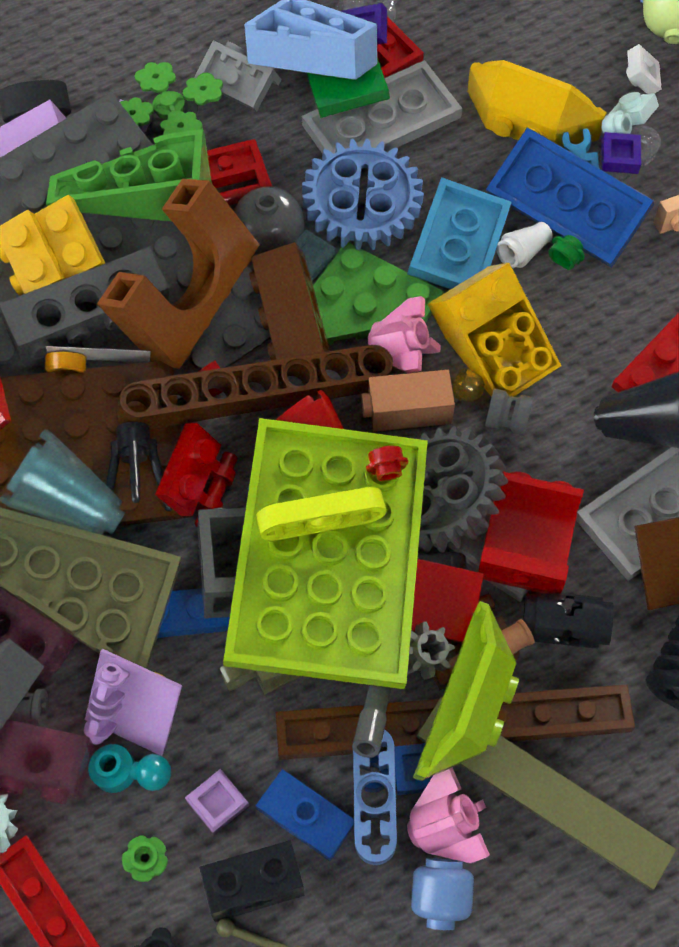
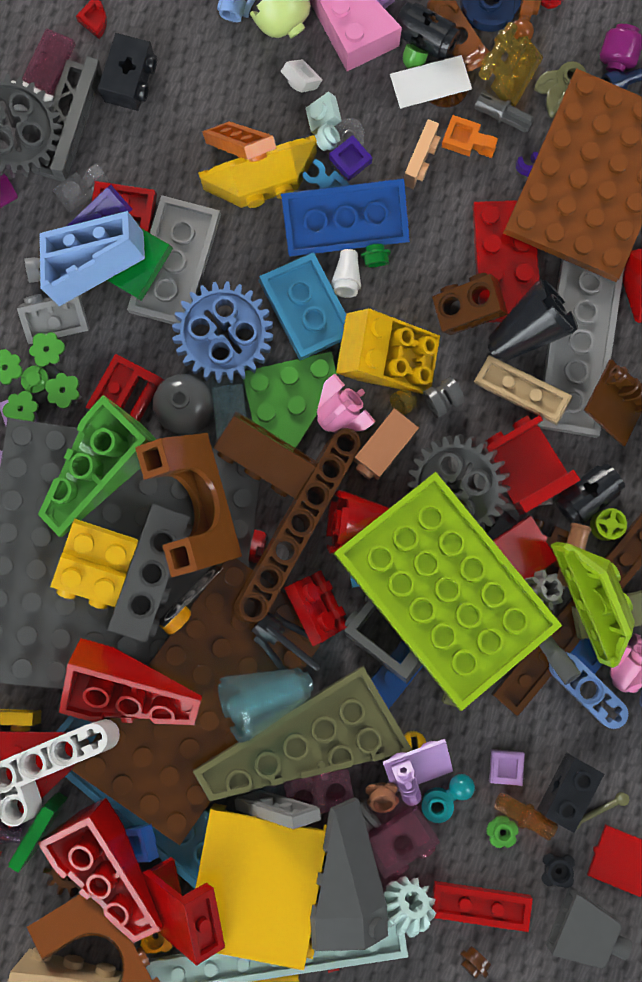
camera: 45 degrees left, 20 degrees up
(69, 704) = (382, 797): none -> nougat plate
(184, 864) = (526, 816): none -> clear orange axle
(305, 814) = (557, 729): blue plate -> none
(321, 513) = (432, 579): neon yellow beam -> none
(386, 463) = (434, 512): red plate -> none
(531, 54) = (240, 141): none -> orange plate
(564, 659) = (615, 524): none -> lime wheel
(594, 470) = (523, 390): none -> tan tile
(613, 352) = (470, 312): none -> reddish brown brick

